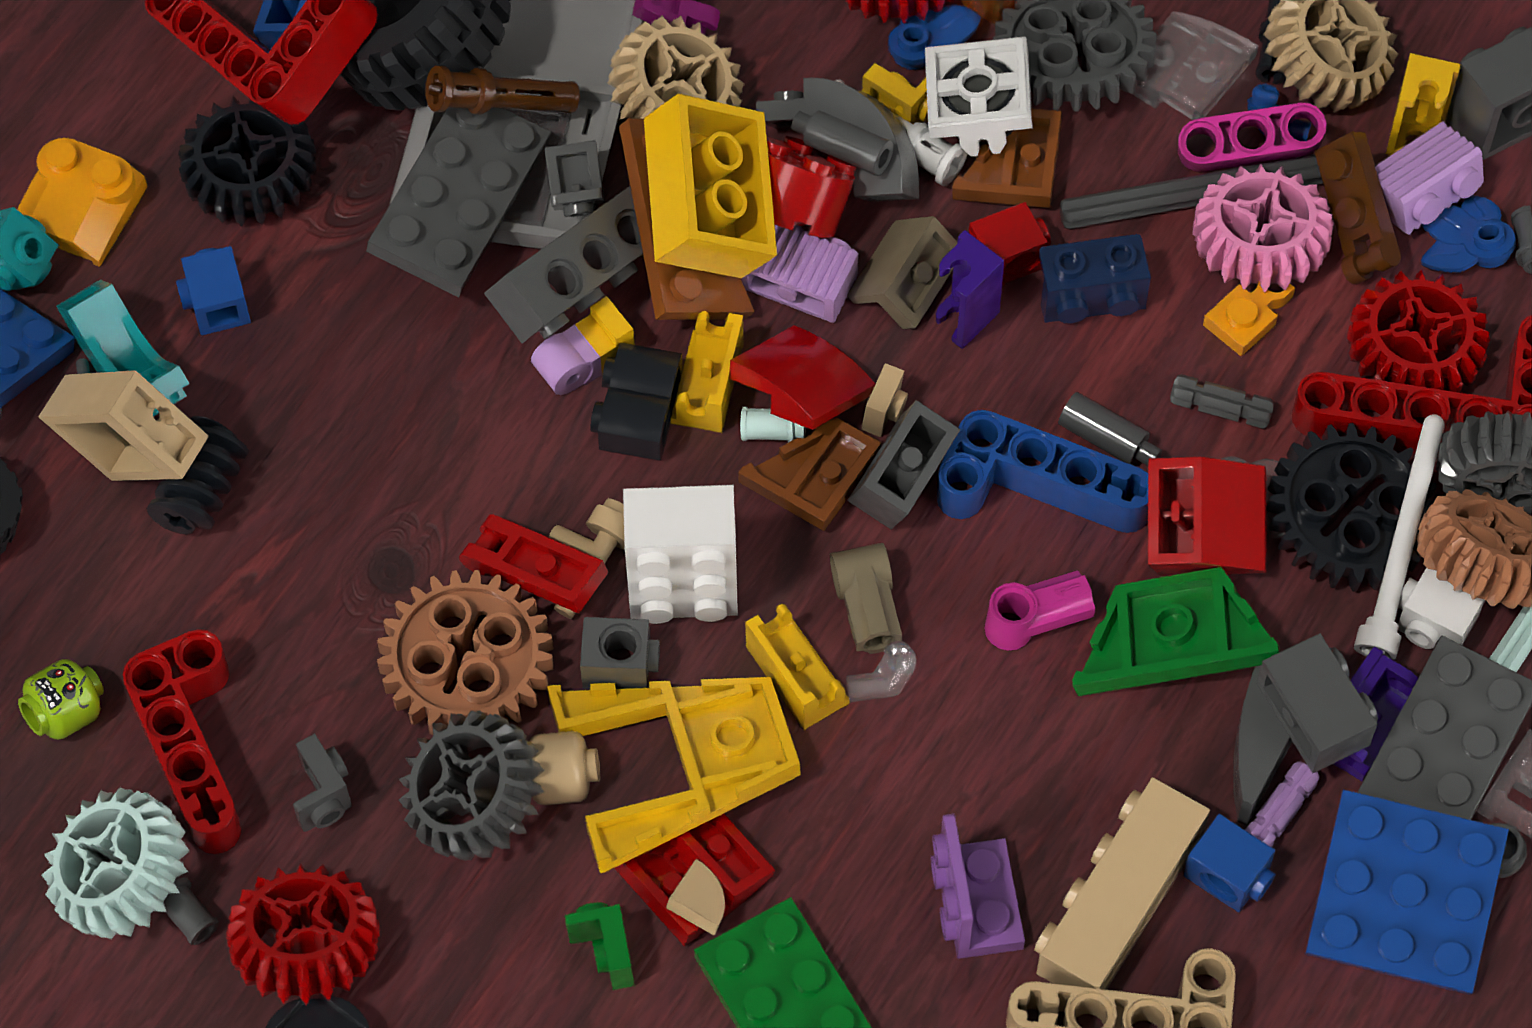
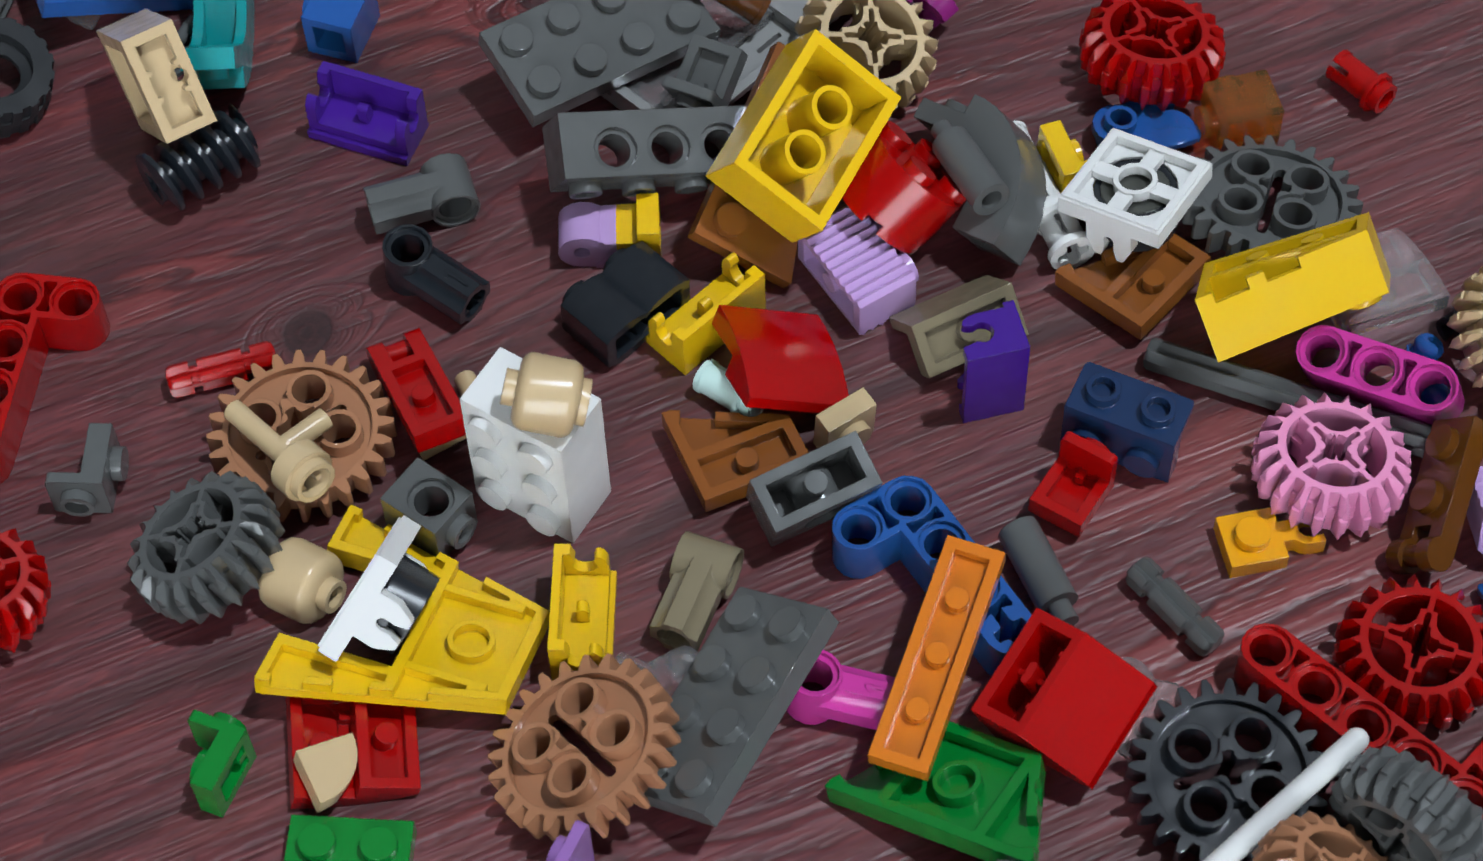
camera: 35 degrees right, 5 degrees down
(304, 362) = (366, 113): none -> dark purple hinge
(351, 640) = (217, 369): none -> red axle
(415, 394) = (437, 193): none -> dark grey piece
(471, 465) = (433, 275): none -> black piece
(506, 680) = (300, 465): none -> tan piece
(648, 739) = (384, 598): none -> white piece
(702, 504) = (547, 394): none -> tan head
(894, 715) = (615, 713): none -> nougat gear
(965, 667) = (737, 698): none -> dark grey plate
(1015, 238) = (1066, 343): red brick -> none
(1088, 348) = (1075, 484): none -> red bracket
(1098, 539) = (937, 658): none -> orange plate
(1148, 101) = (1291, 284): none -> yellow wedge

